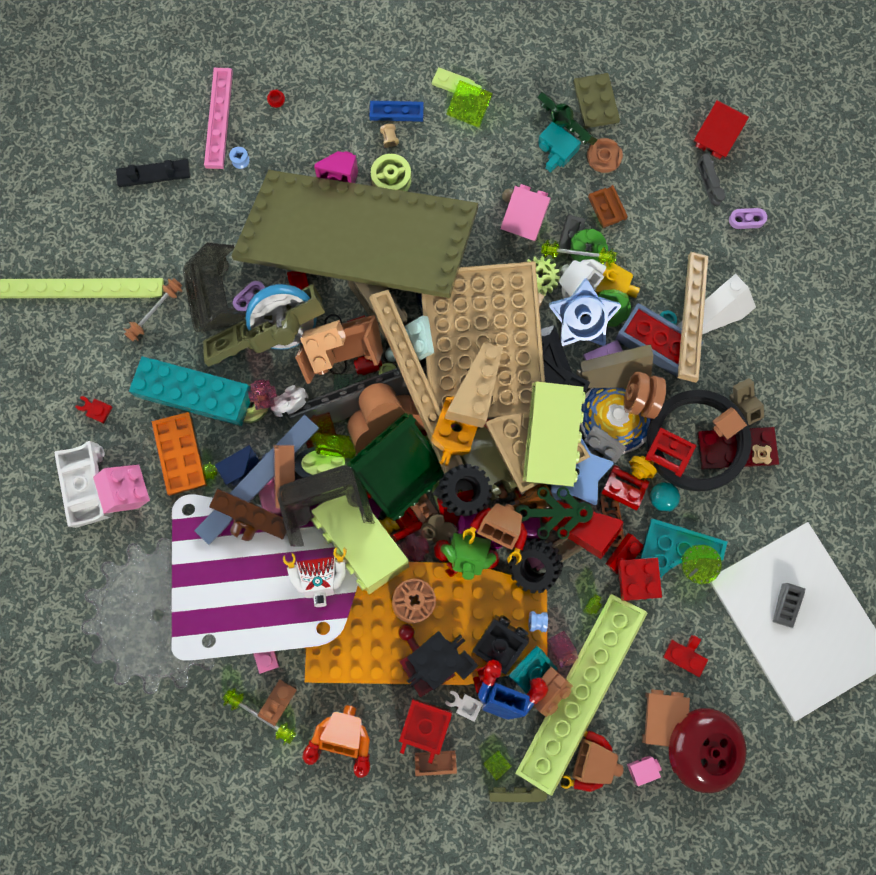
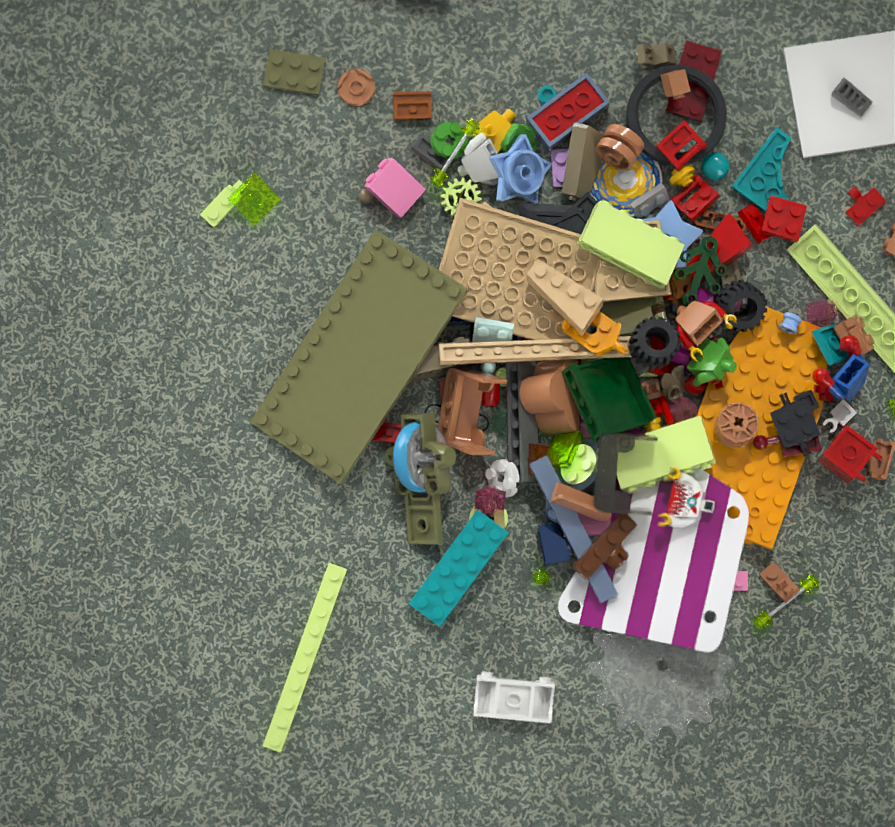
camera: 70 degrees left, 5 degrees up
(96, 410) = (441, 667): red plate -> none
(121, 488) = (533, 661): bright pink brick -> none
(153, 173) = (209, 539): black hinge -> none
(170, 290) = (374, 605): nougat axle -> none
(179, 453) = (514, 600): orange plate -> none
(206, 289) = (362, 524): clear smoke windscreen -> none
(218, 118) = (173, 453): bright pink plate -> none
(240, 162) = (226, 450): light blue wheel -> none
(246, 295) = (380, 484): lavender plate -> none
(275, 98) = (172, 389): red plate -> none
(319, 344) = (459, 427): light nougat brick -> none
(338, 166) = (282, 349): dark pink slope -> none
(341, 735) = (829, 531): torso -> none
(389, 135) = (258, 289): tan bush -> none
(391, 172) = (304, 302): yellowish green wheel -> none
(396, 111) = (233, 273): blue plate -> none
(501, 642) = (798, 361): black plate -> none
(559, 144) = (332, 126): teal hinge -> none
(563, 115) = (308, 111): dark green plate -> none
(593, 605) = (791, 269): clear neon green plate -> none
(693, 317) = (557, 71): tan tile -> none
(701, 564) = (789, 158): clear neon green tile -> none
(727, 304) = (555, 42): white wedge -> none
(757, 458) = (711, 69): tan plate -> none

